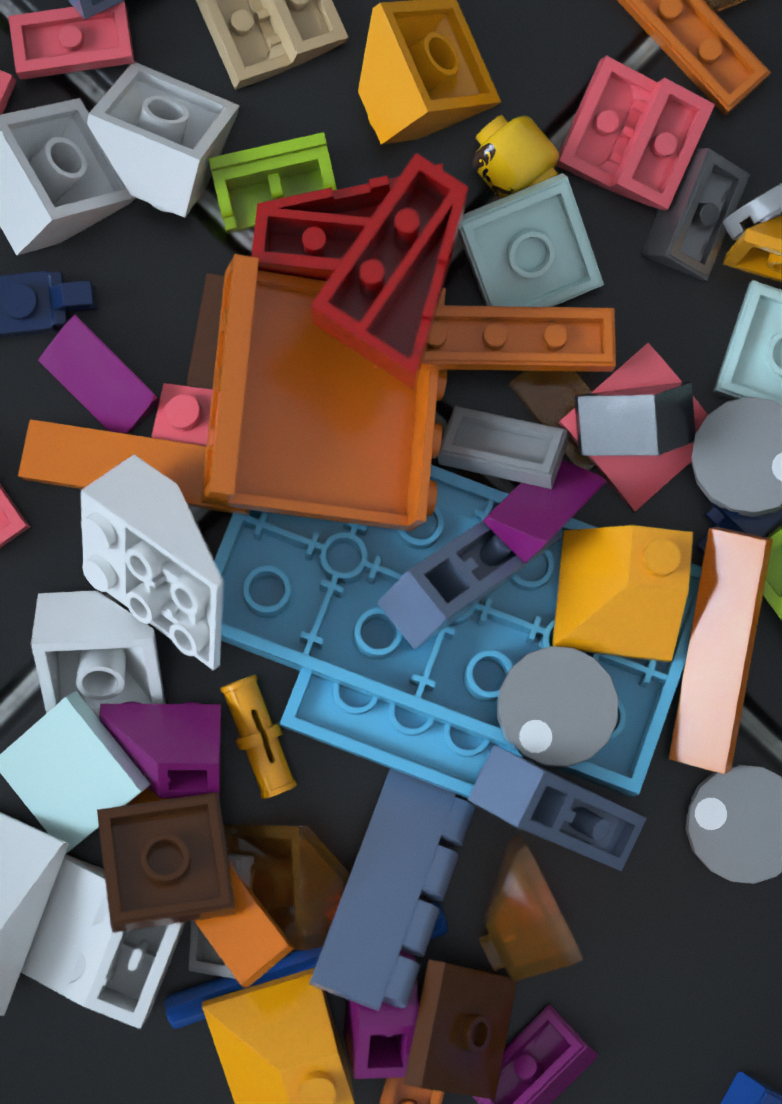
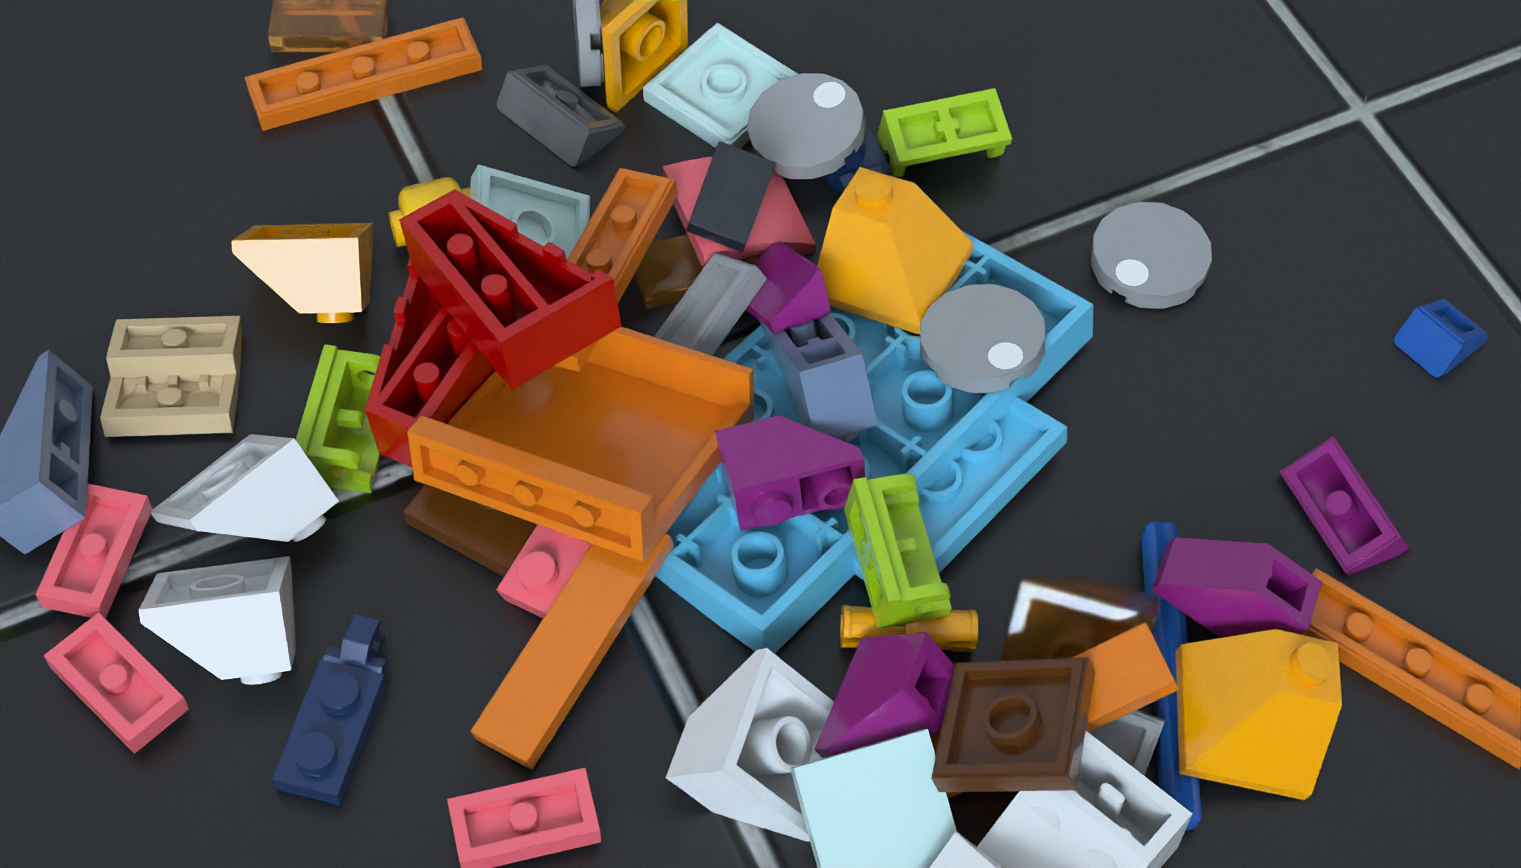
camera: 70 degrees left, 30 degrees down
(98, 378) = (456, 648): magenta slope -> none
(153, 557) = (692, 606): white slope -> none
(297, 711) = (895, 551): none -> lime hinge
(340, 580) = (785, 470): none -> magenta slope
(381, 898) = (1121, 541): sand blue windscreen -> none
(460, 1030) = (1283, 525): reddish brown plate -> none
(524, 920) = (1179, 431): clear orange slope -> none
(556, 808) = (1076, 375): sand blue slope -> none
(634, 134) = (461, 125): coral slope -> none
(720, 649) = (982, 203): tile -> none

